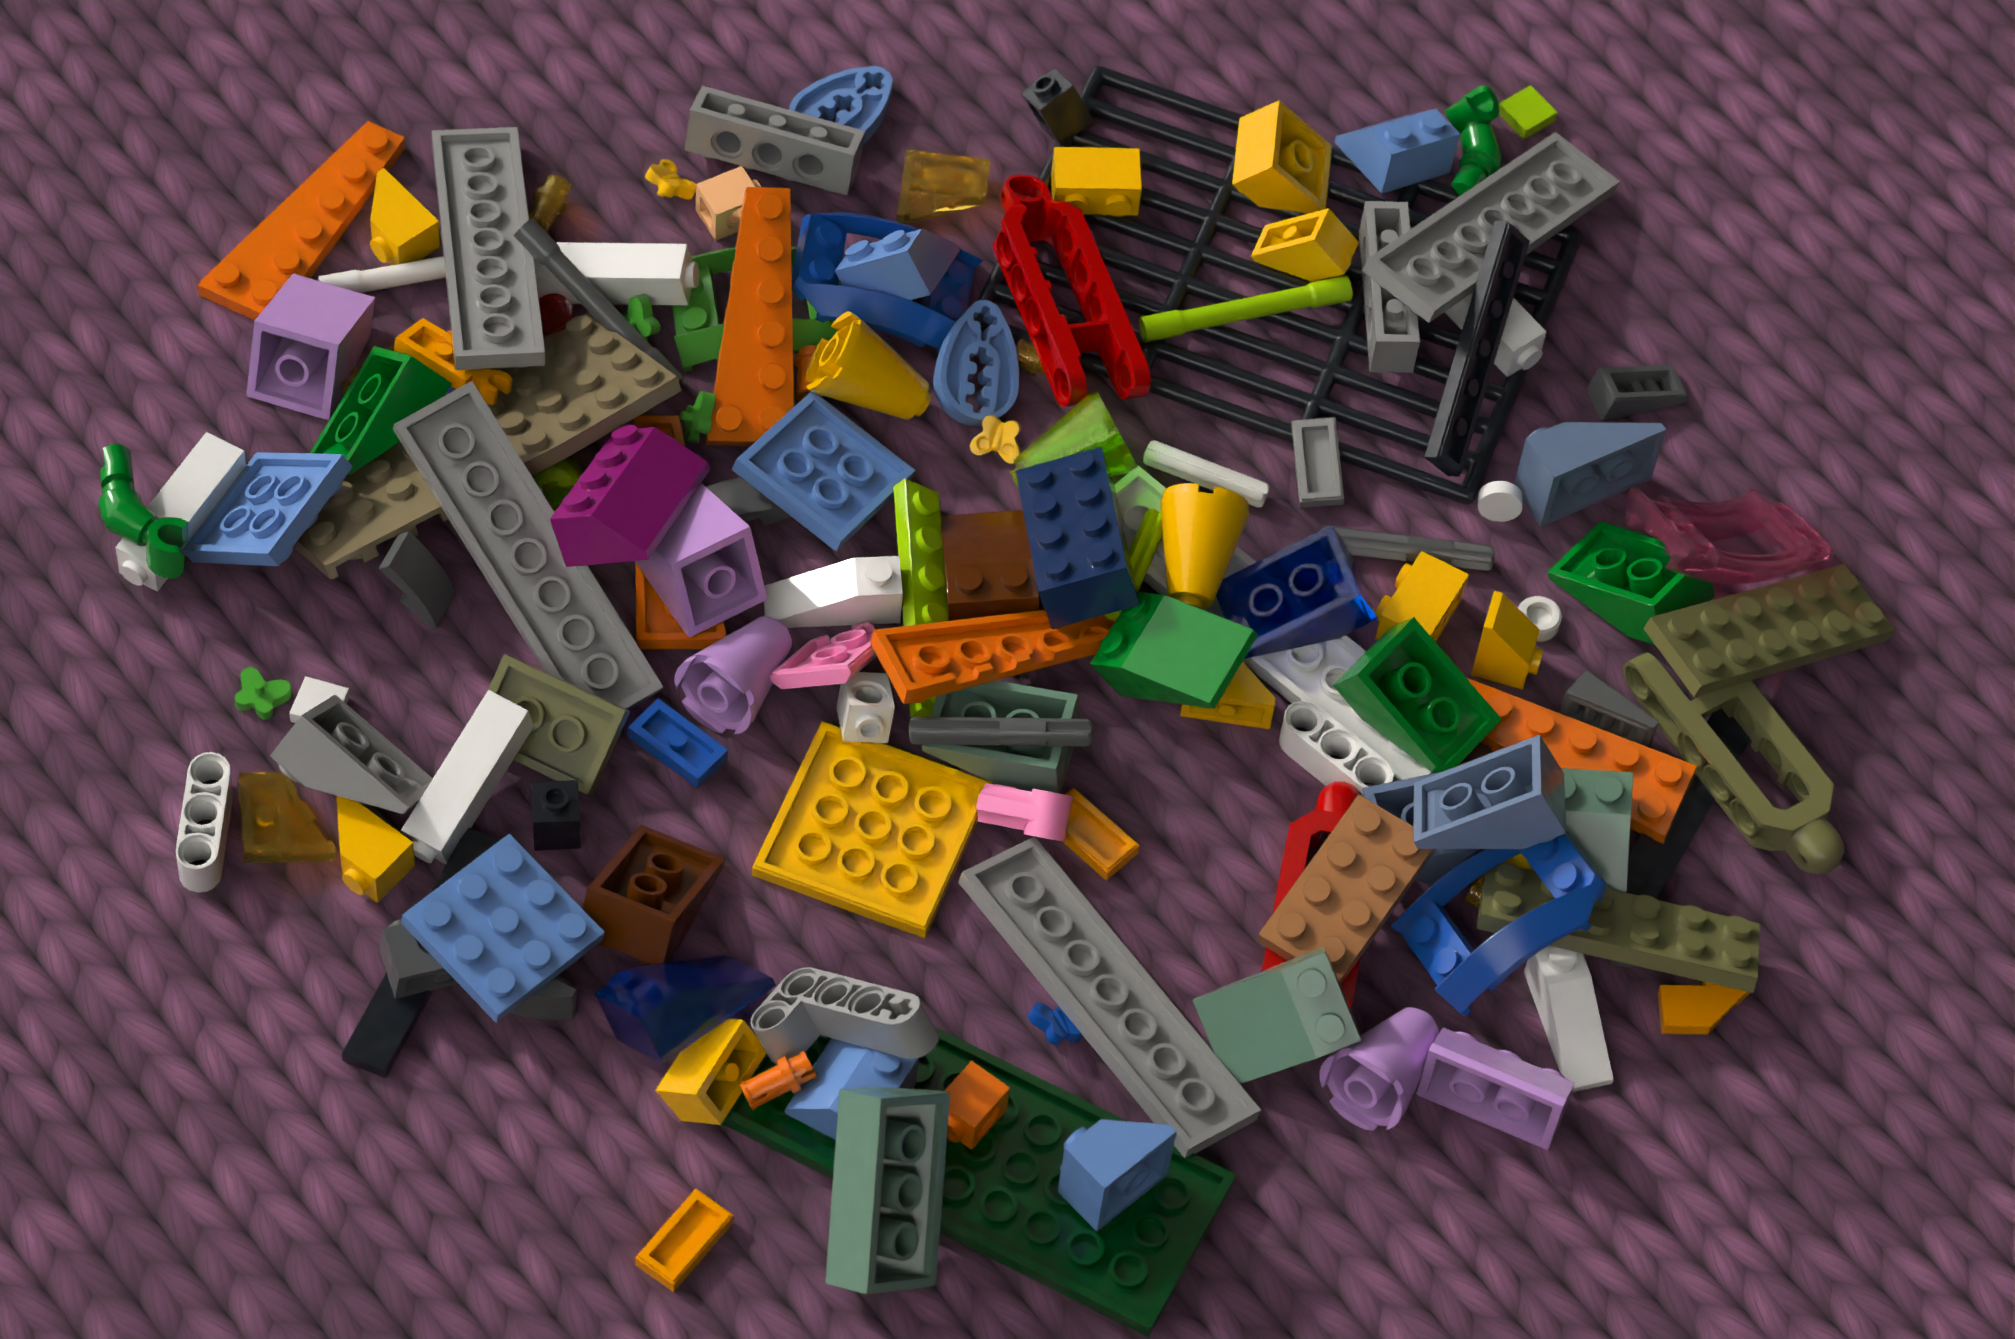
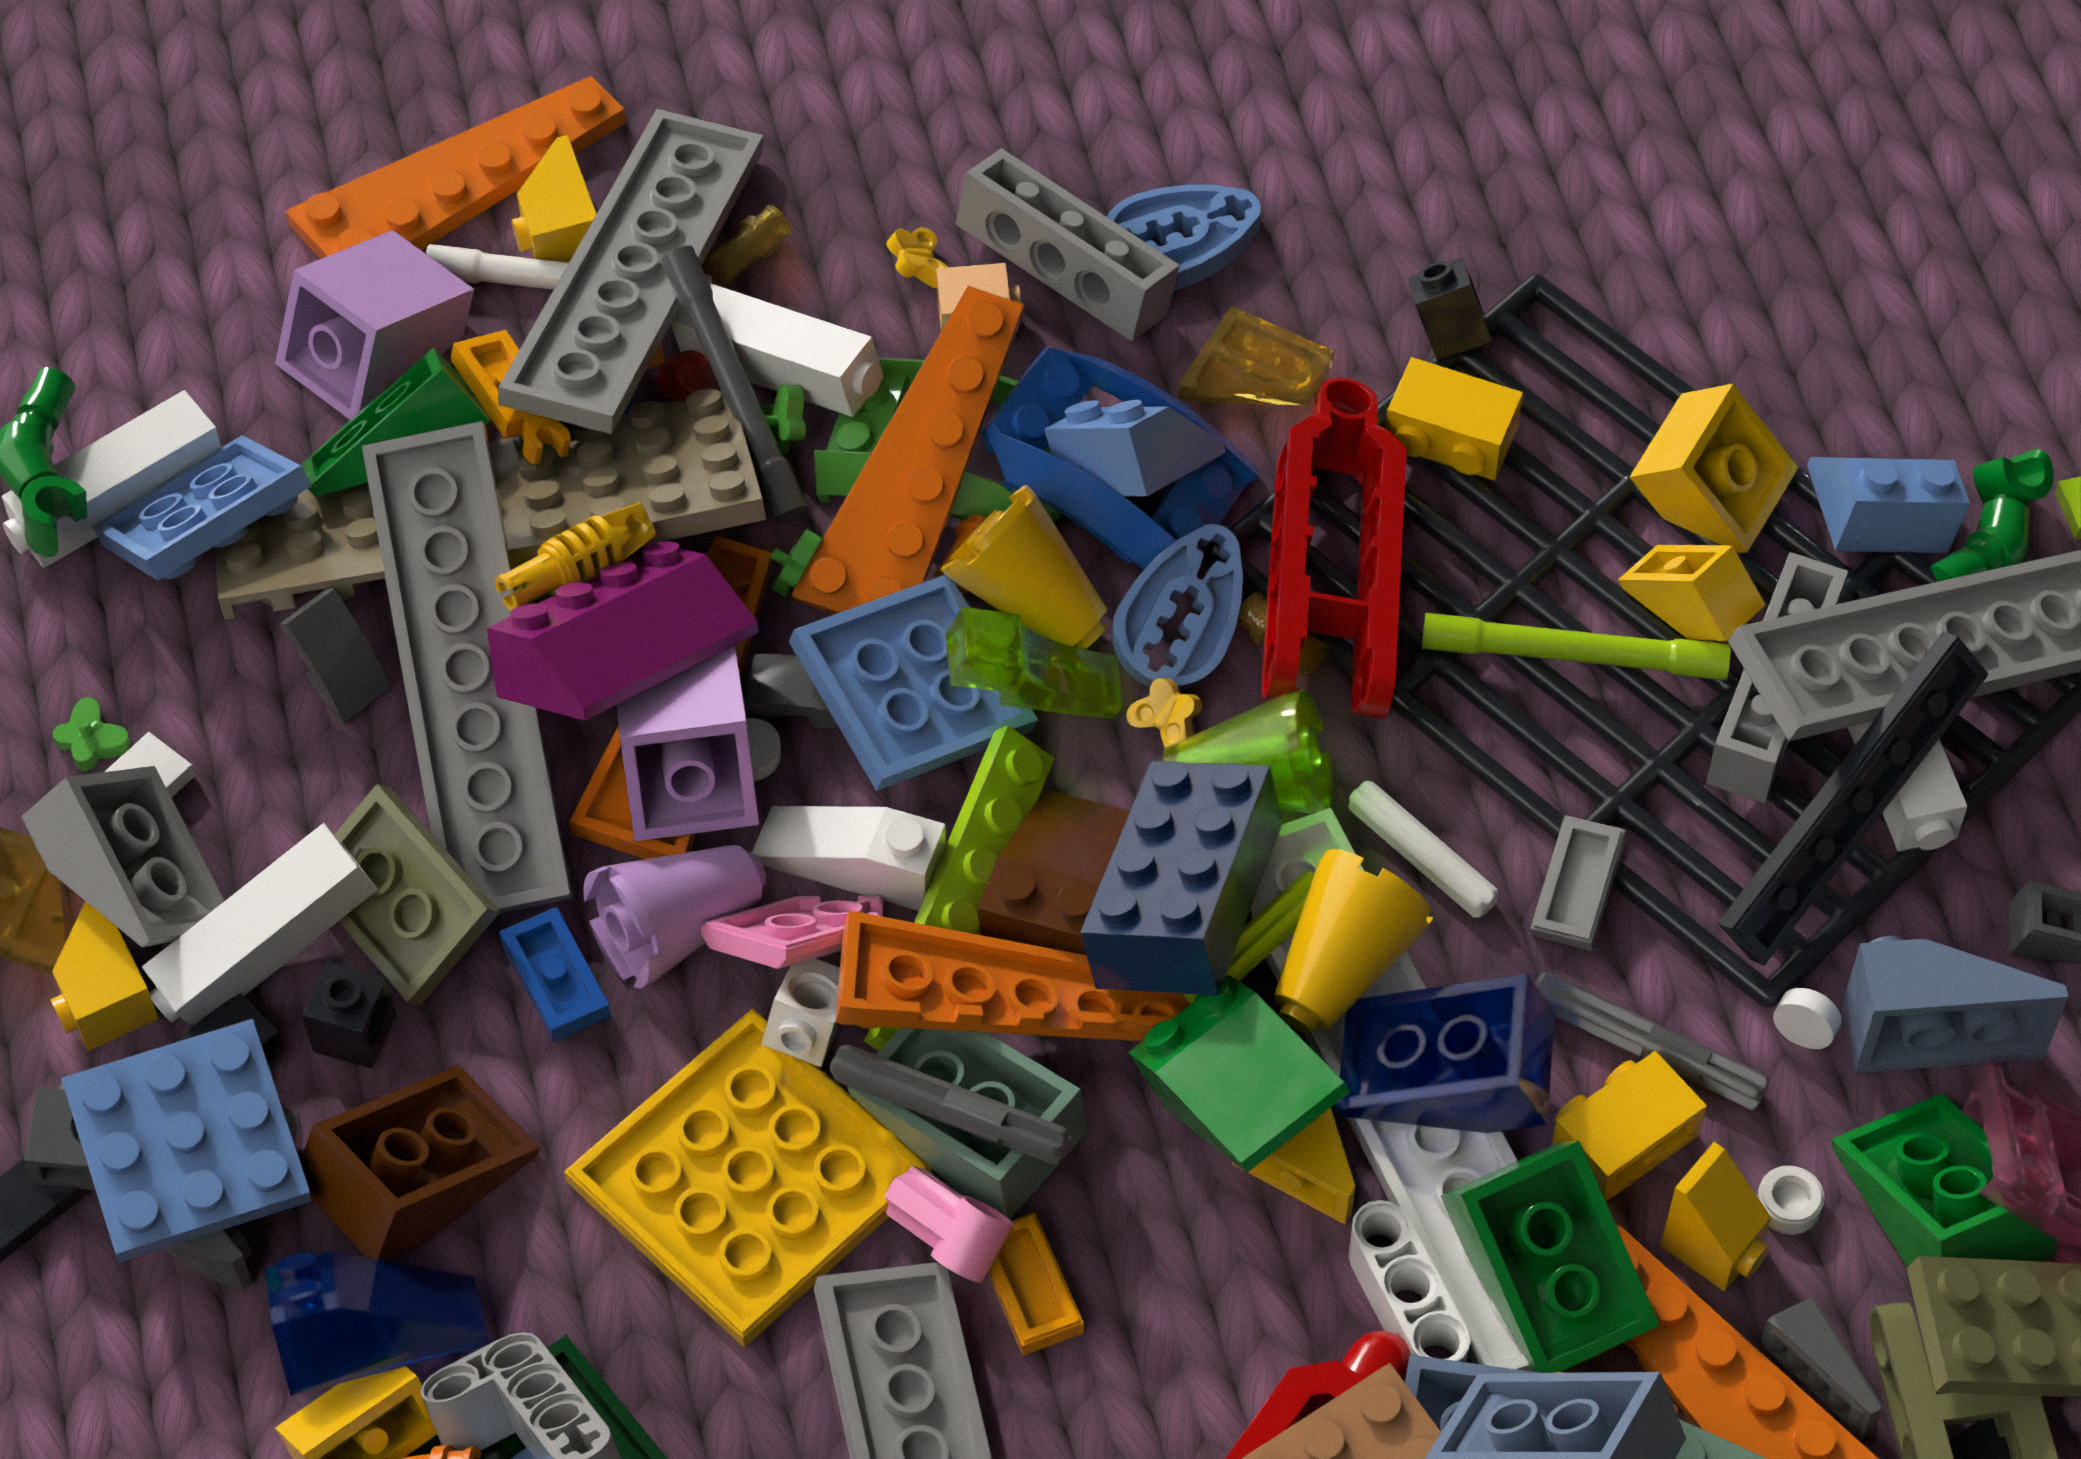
camera: 30 degrees right, 0 degrees up
(574, 453) = (577, 554): none -> yellow hinge
(897, 437) = (1030, 670): none -> clear neon green slope

